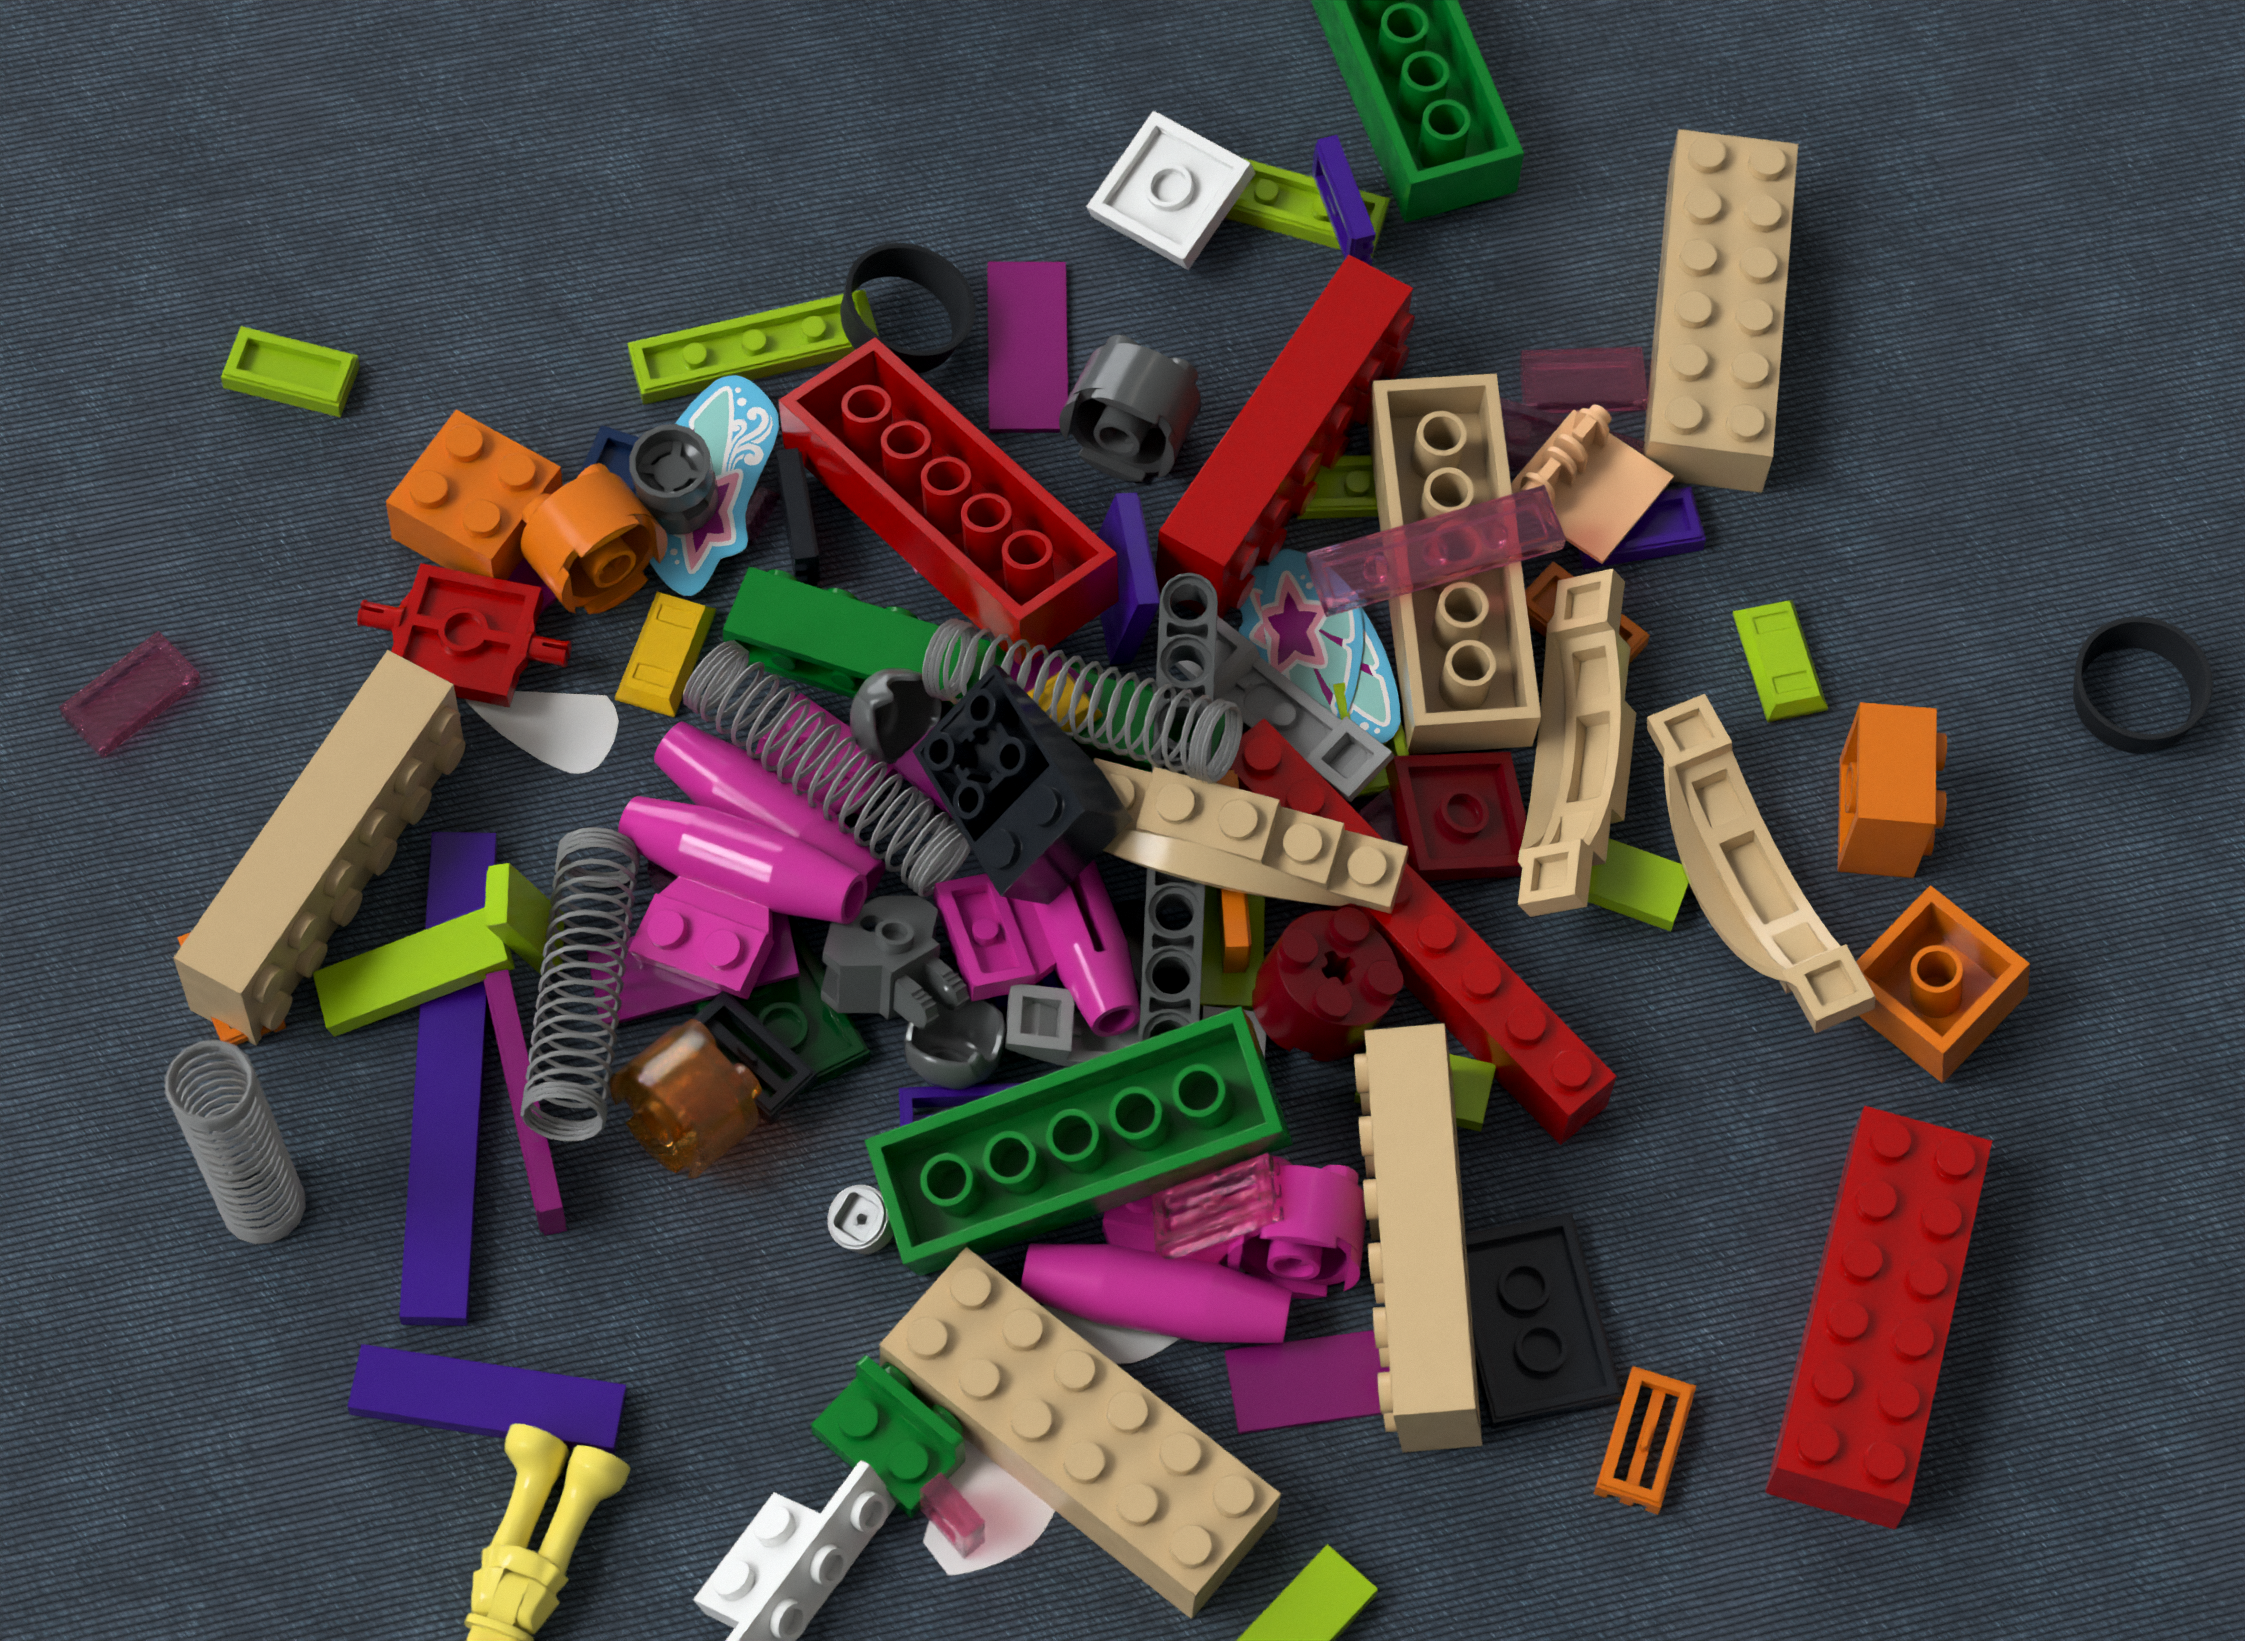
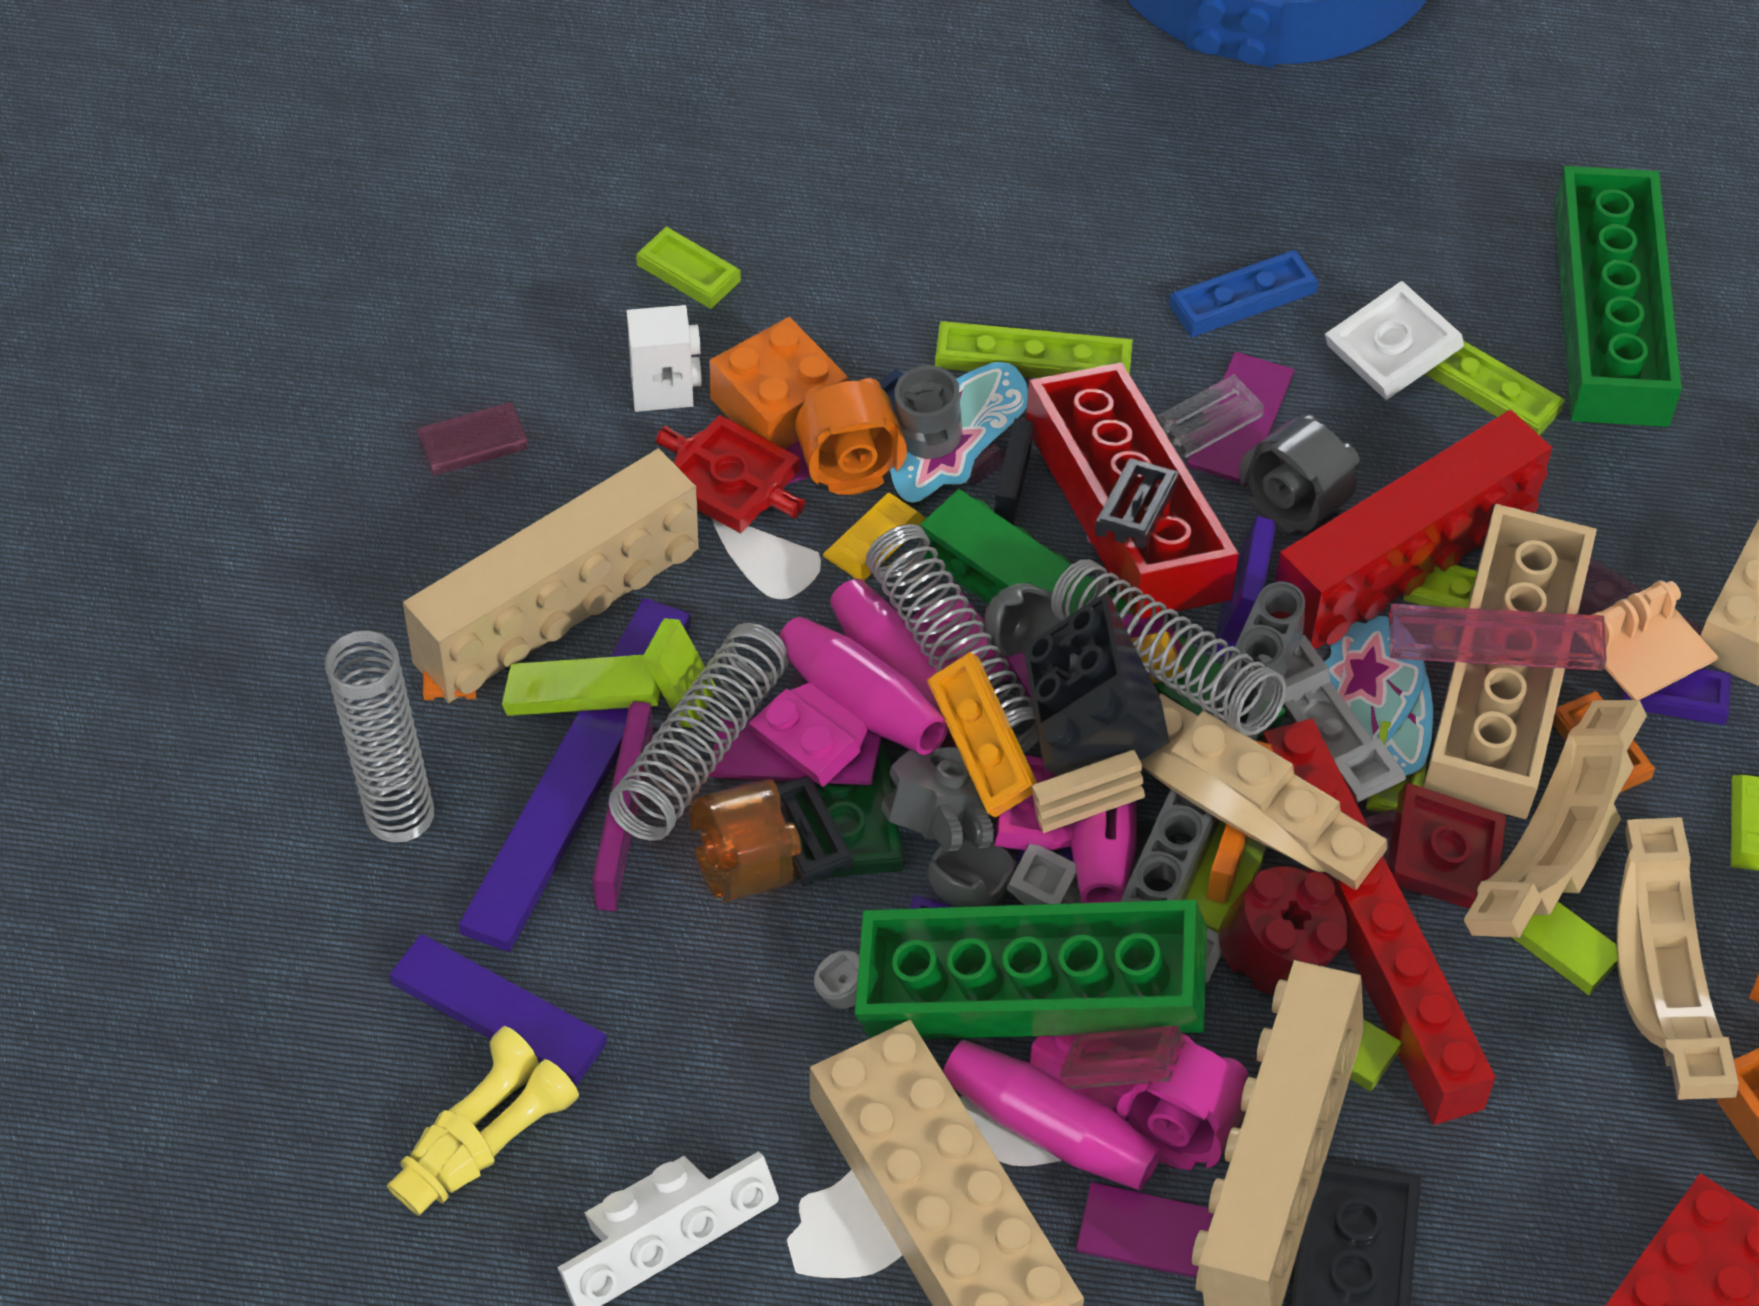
camera: 25 degrees right, 10 degrees down
(324, 515) = (662, 358): none -> white brick
(892, 1431) = (797, 1147): green bracket -> none
(913, 879) = (982, 734): none -> light orange tile
(925, 269) = (1177, 333): black tyre -> none
(952, 1515) = (814, 1222): clear pink tile -> none
(966, 396) = (1215, 421): none -> clear tile
(968, 179) = (1243, 293): none -> blue tile
(977, 568) = (1127, 527): none -> black tile
(1058, 905) = (1088, 791): none -> tan tile
(1342, 200) = (1525, 378): dark purple tile -> none
(1583, 377) = (1695, 574): clear pink tile -> none

